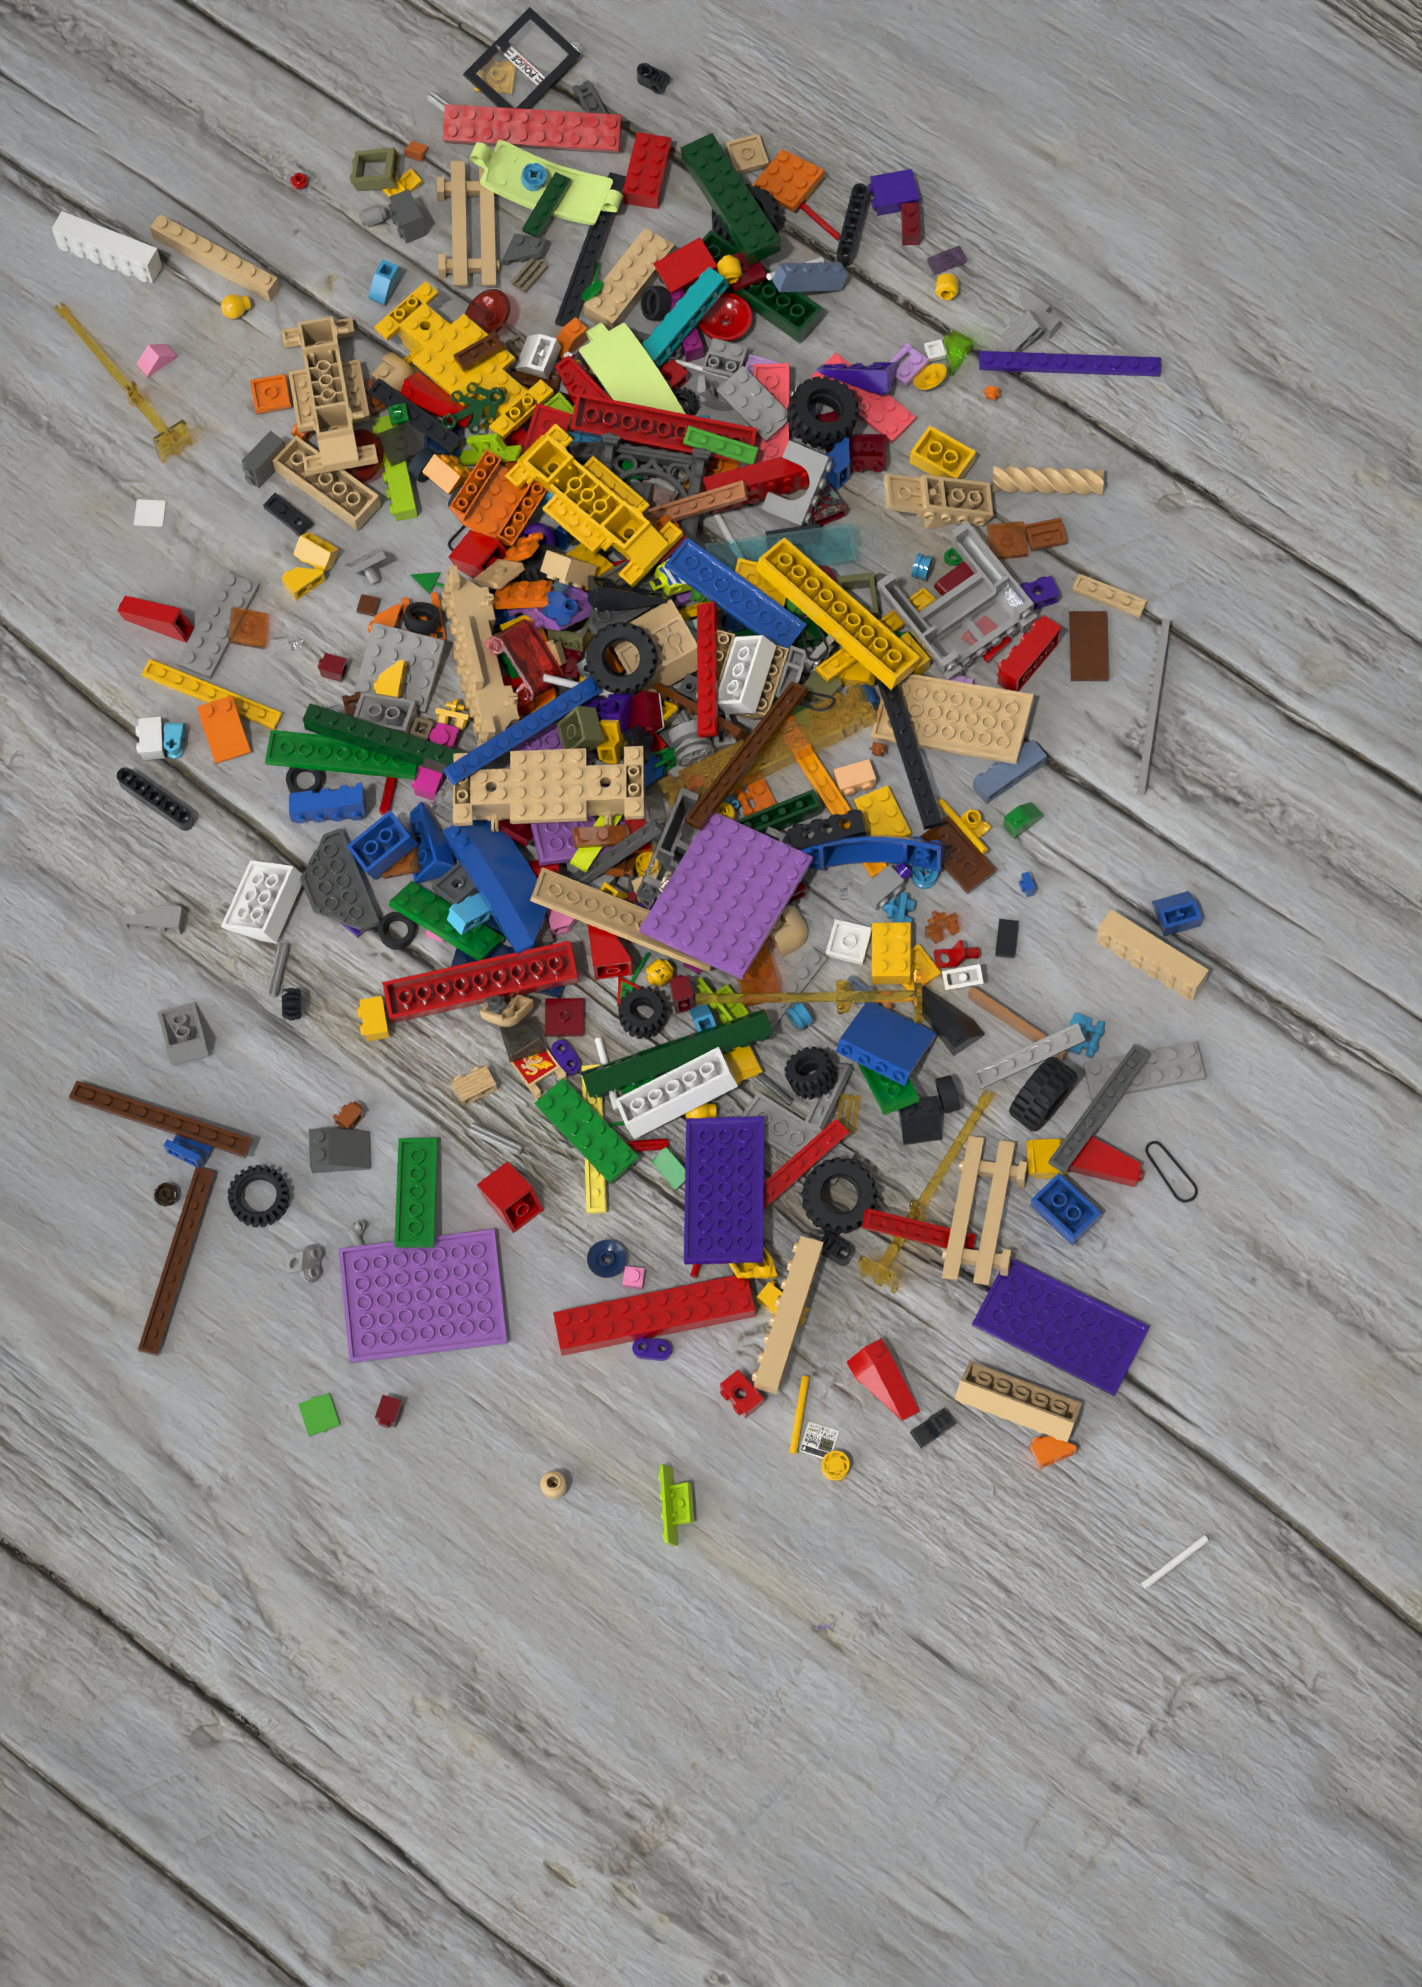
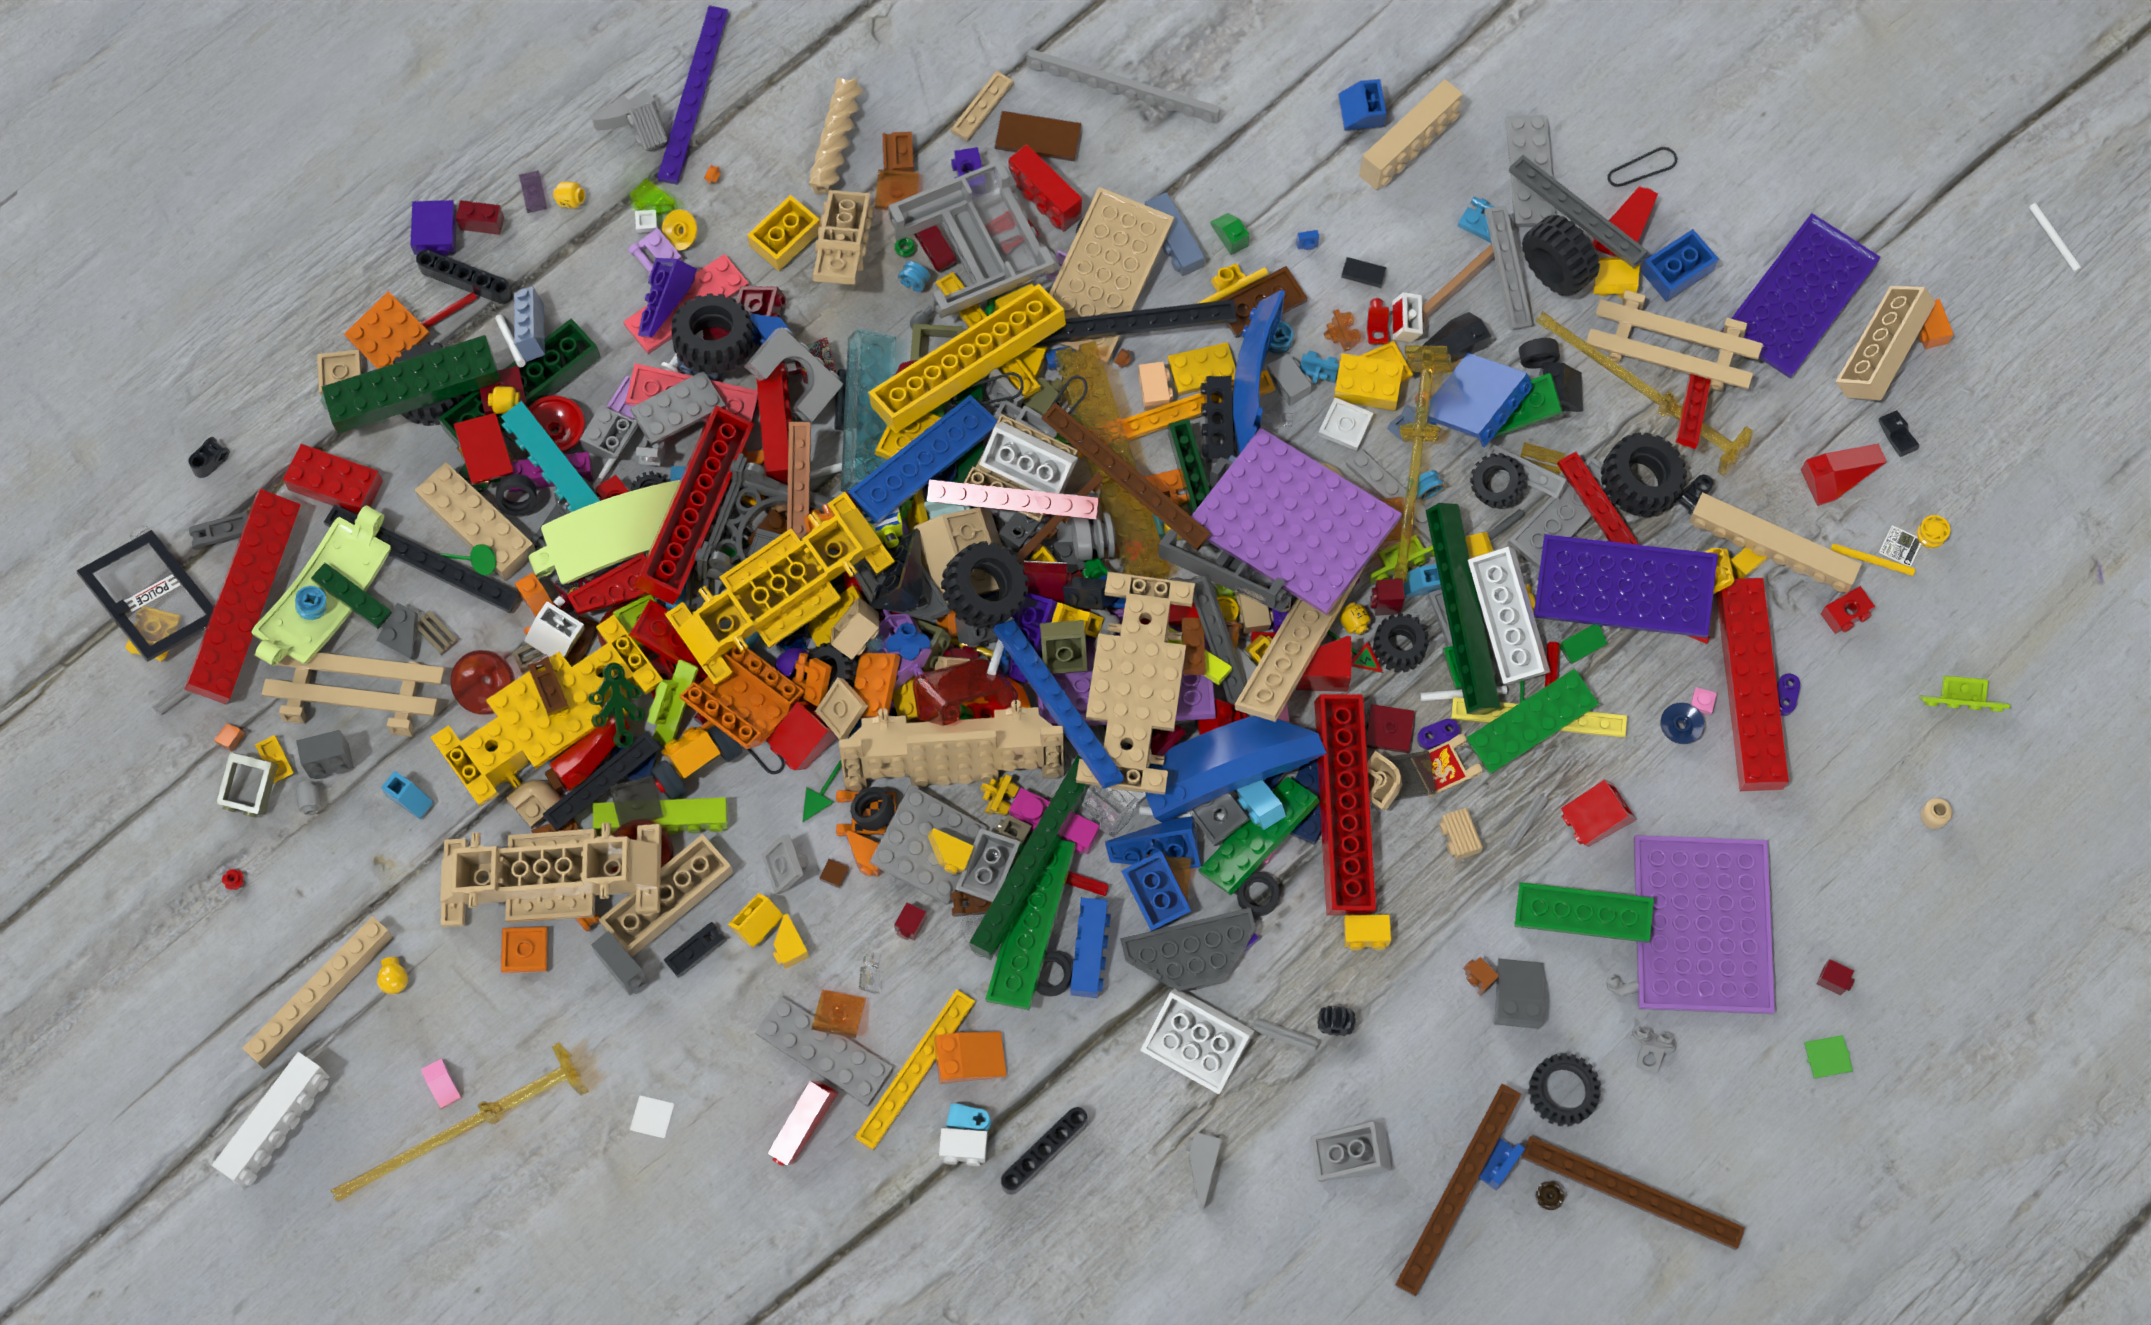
camera: 85 degrees left, 0 degrees up
(398, 414) = (598, 797): green tile -> none
(496, 1004) = (1382, 792): dark grey plate -> none
(720, 445) = (729, 446): bright green tile -> none
(904, 871) = (1277, 351): dark purple plate -> none

